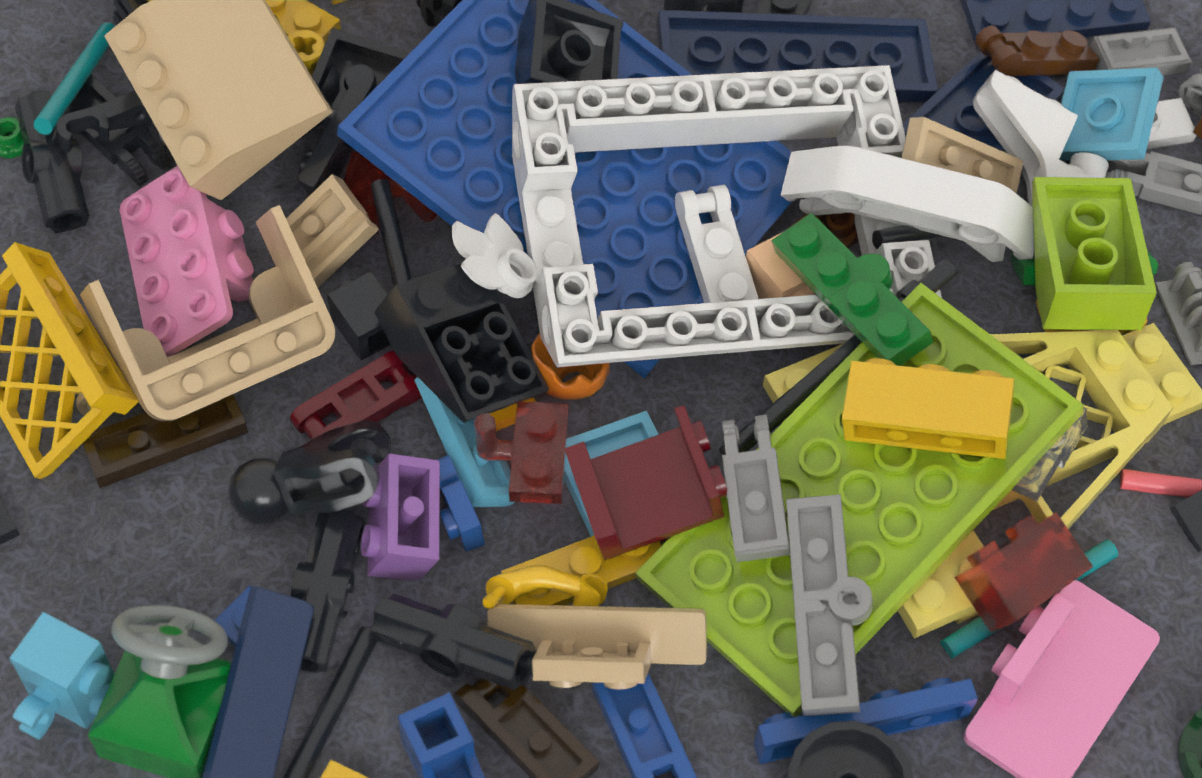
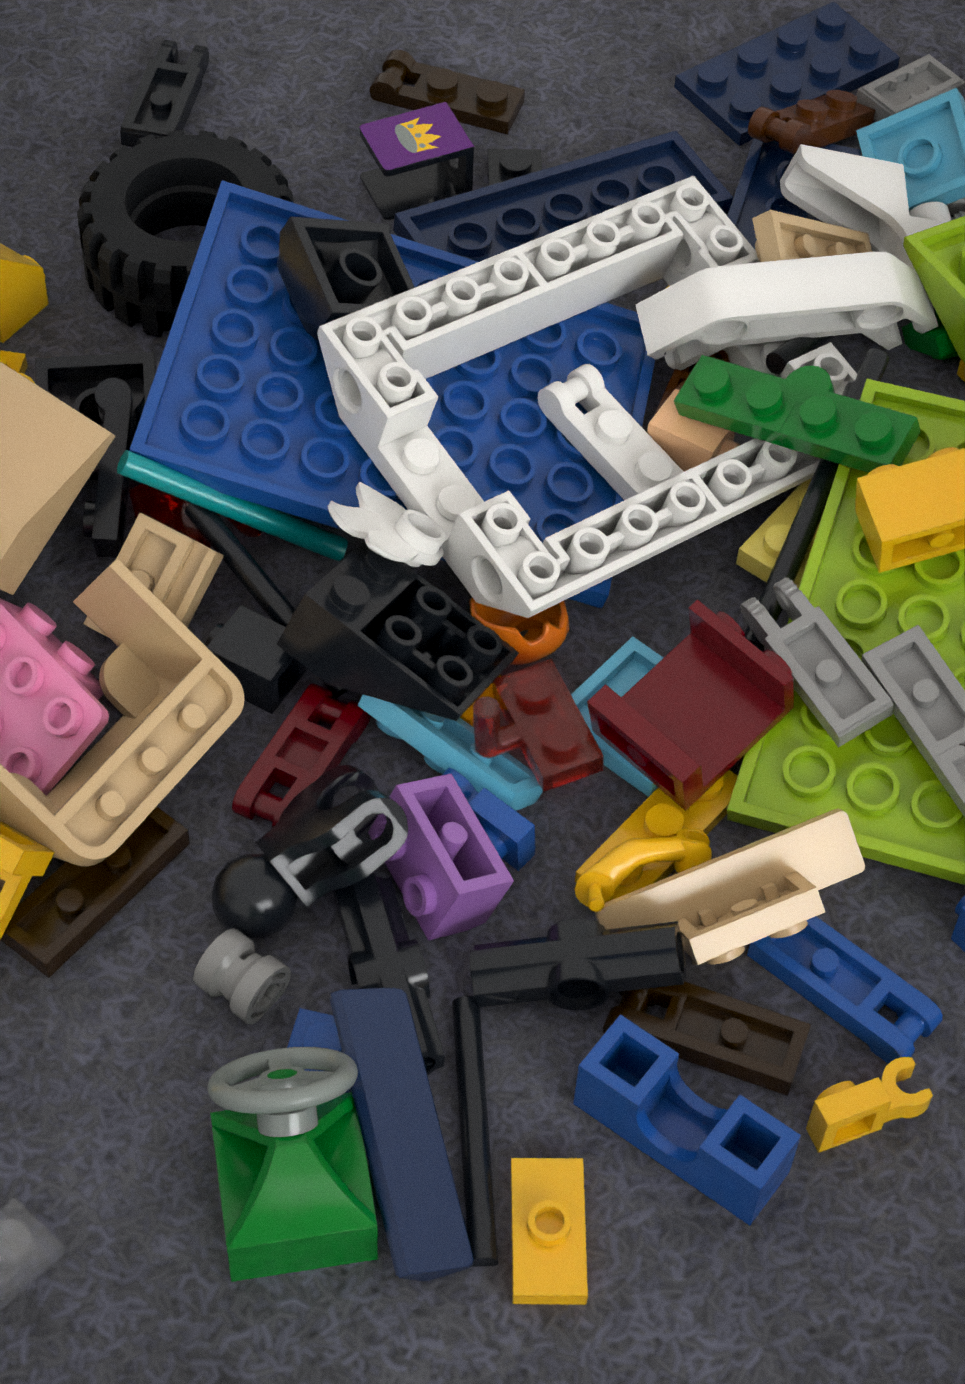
camera: 25 degrees left, 5 degrees down
(62, 675) = (153, 1197): medium azure brick -> none
(222, 544) = (242, 976): none -> light grey wheel
(368, 166) = (245, 512): none -> teal bar

